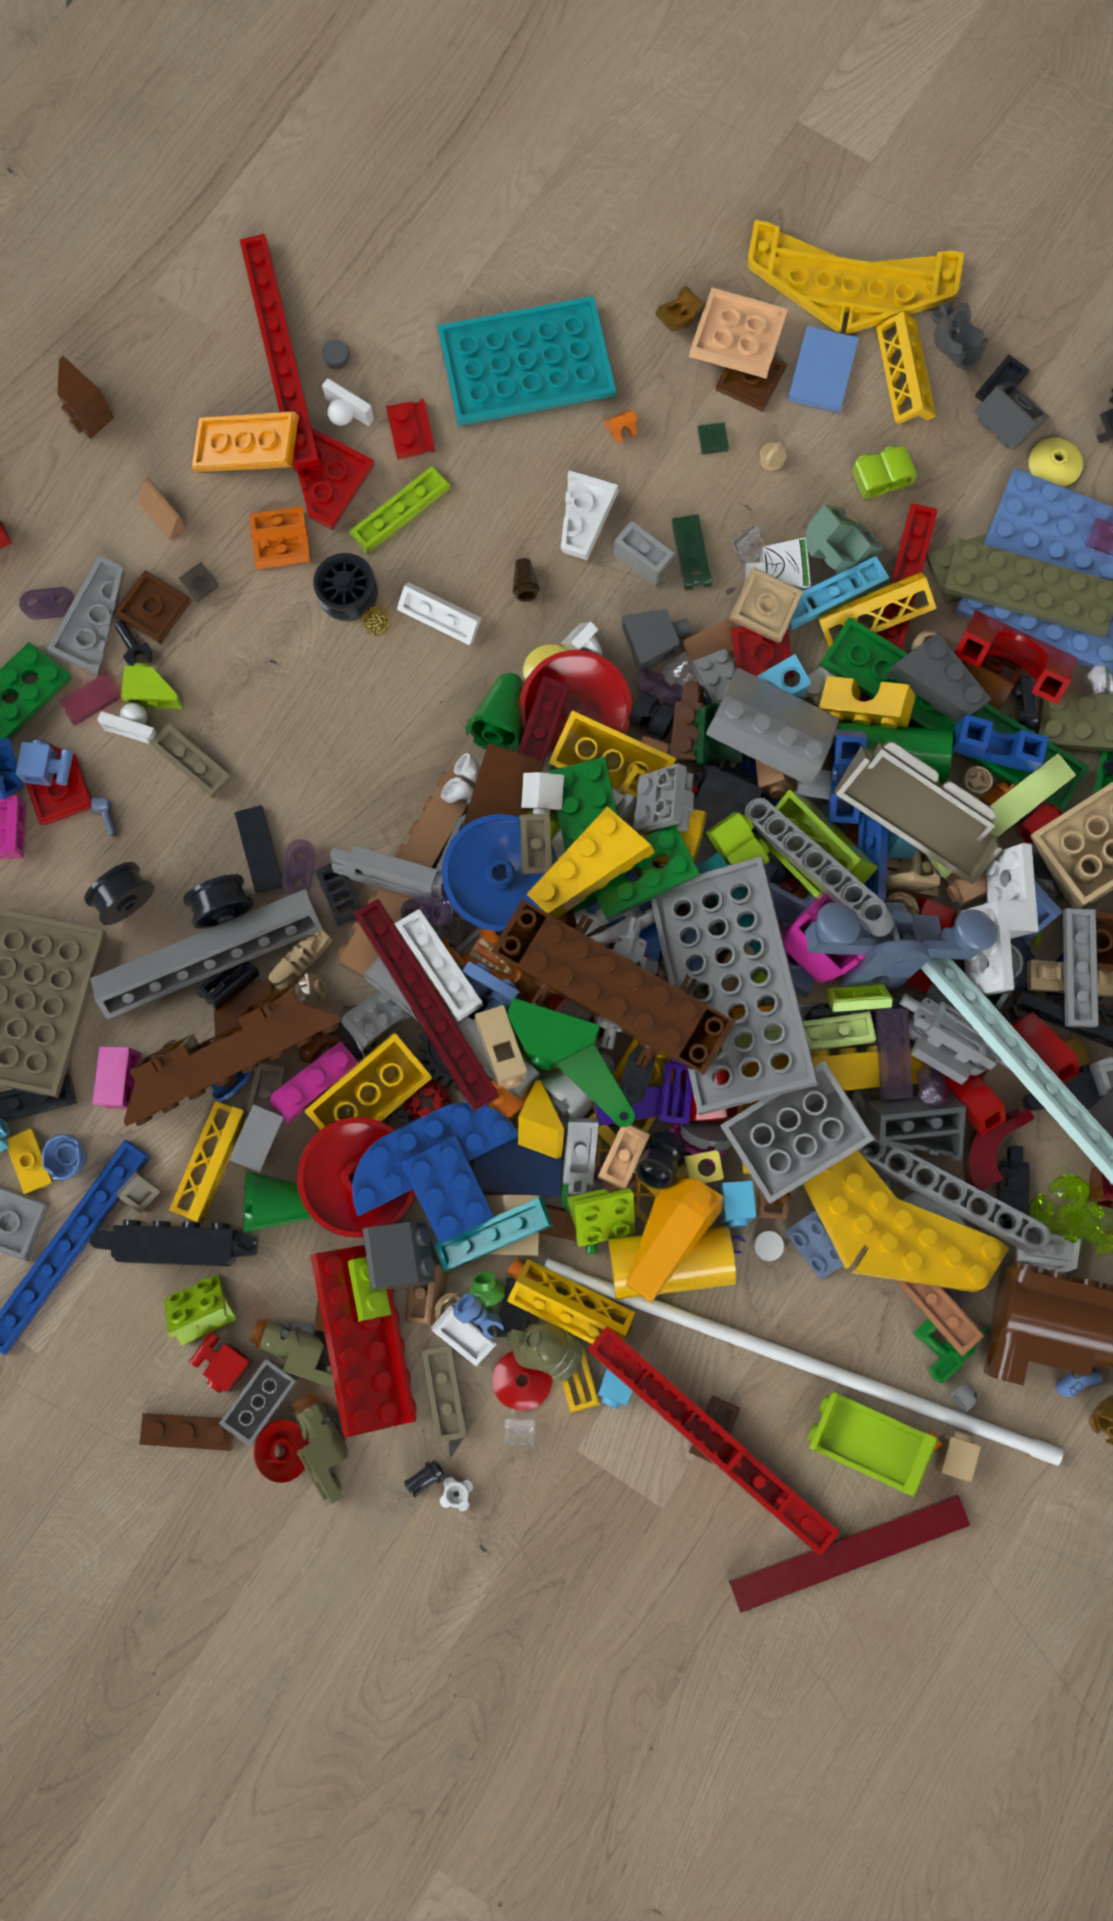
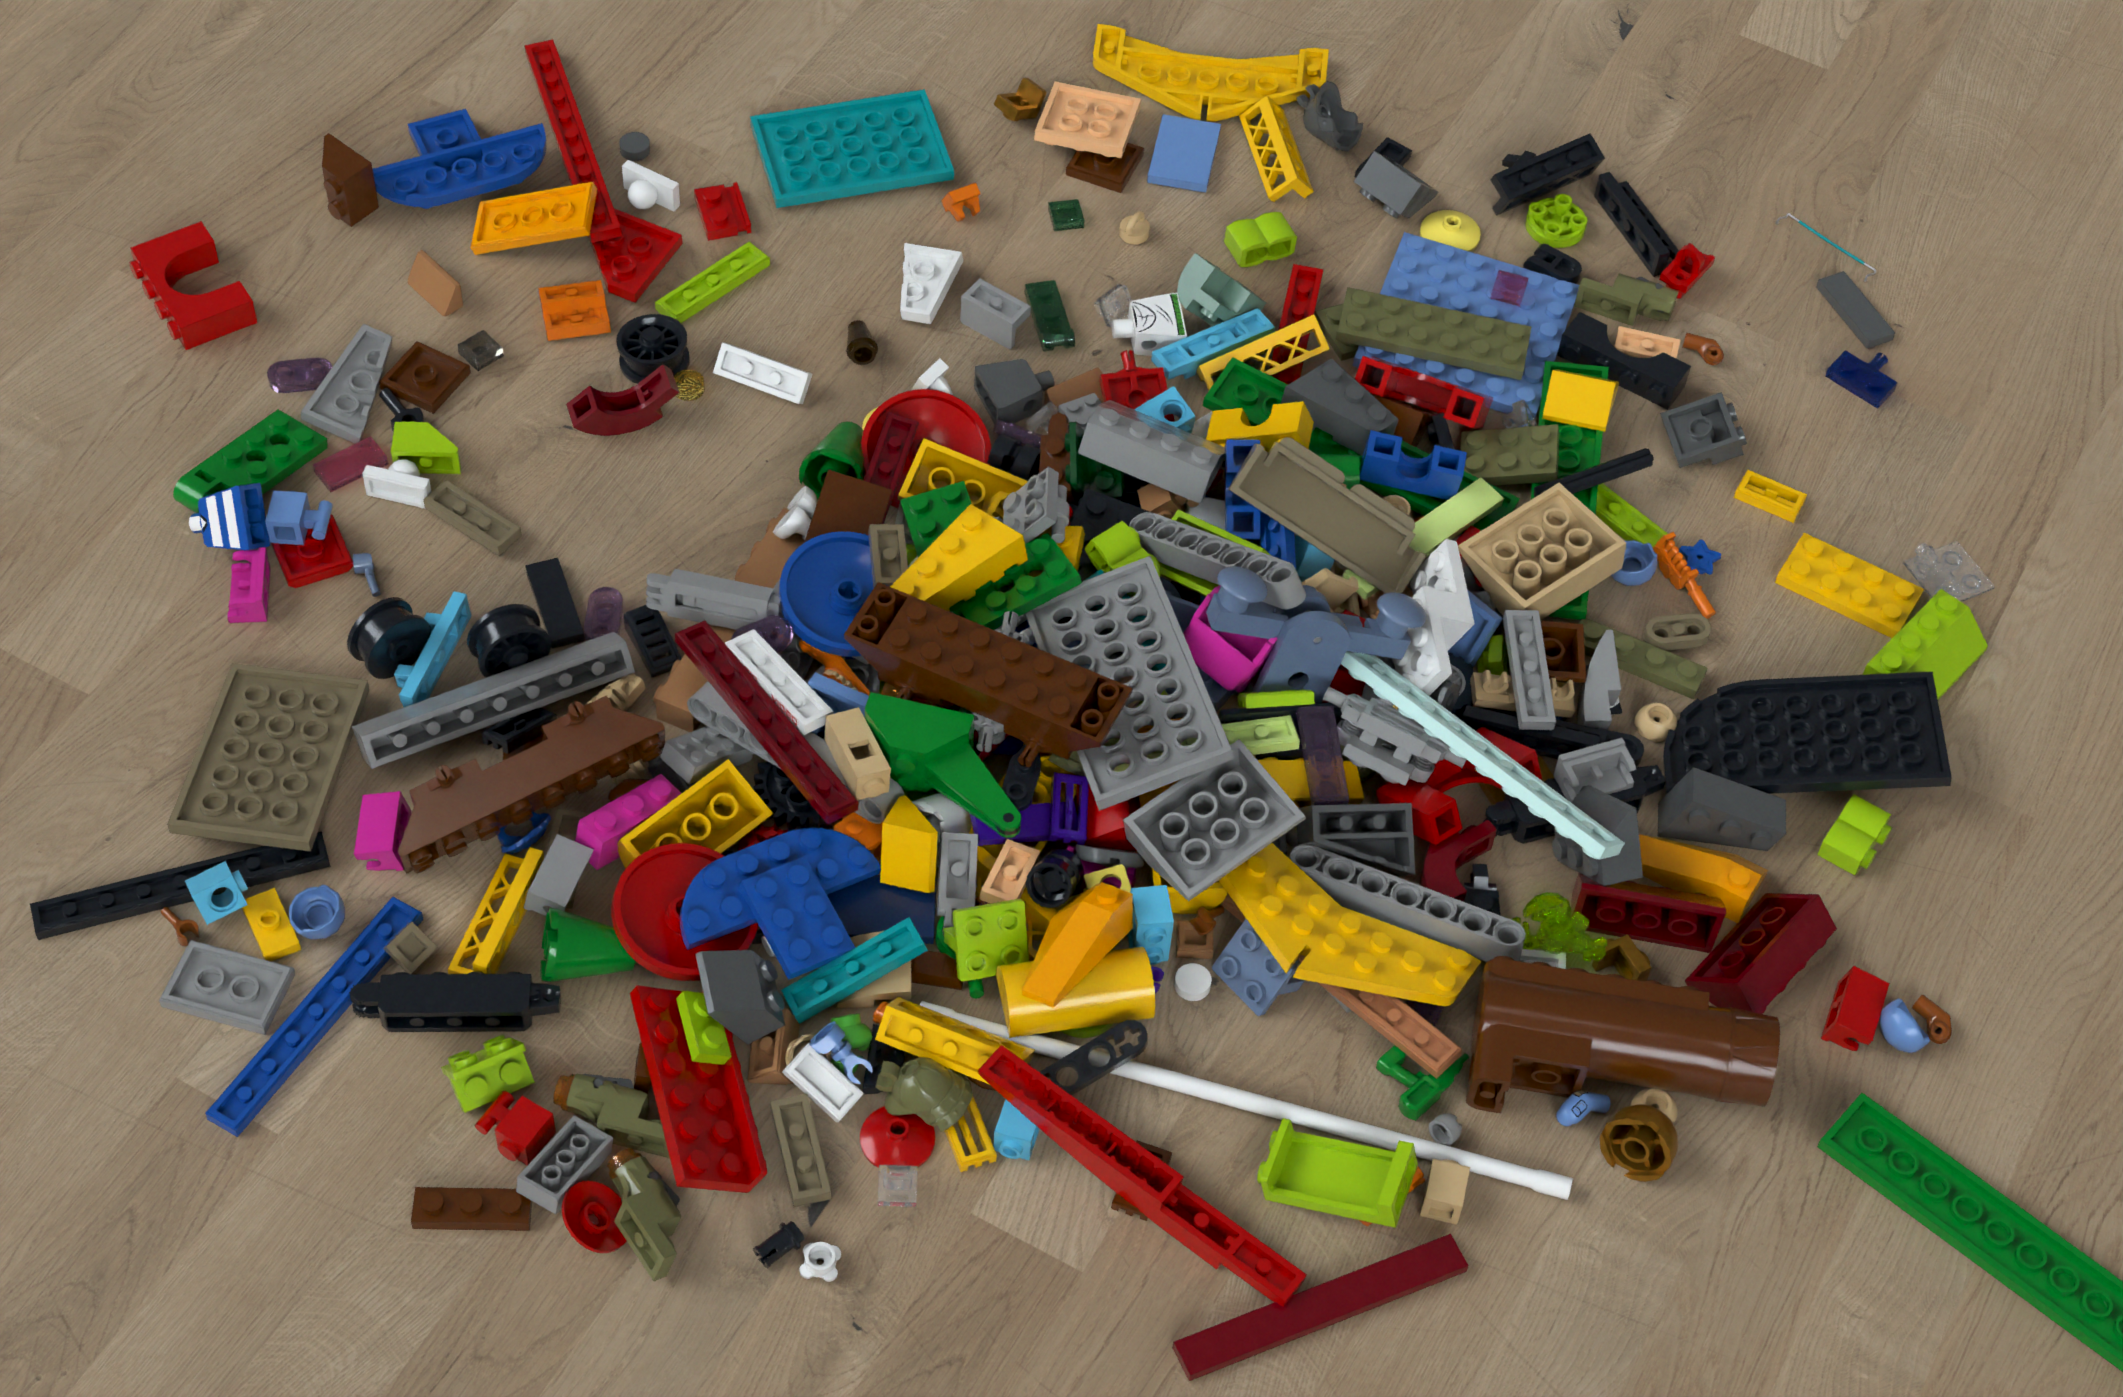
camera: 10 degrees left, 25 degrees down
(159, 903) = (446, 629): none -> medium azure hinge
(181, 374) = (458, 162): none -> blue plate
(318, 651) = (625, 410): none -> dark red arch
(542, 792) = (894, 506): white brick -> none
(675, 1335) = (1086, 1071): none -> black beam
(766, 605) = (1137, 348): tan tile -> none
(932, 1086) = (1369, 788): plate -> none
(1052, 936) = (1496, 657): none -> lime plate

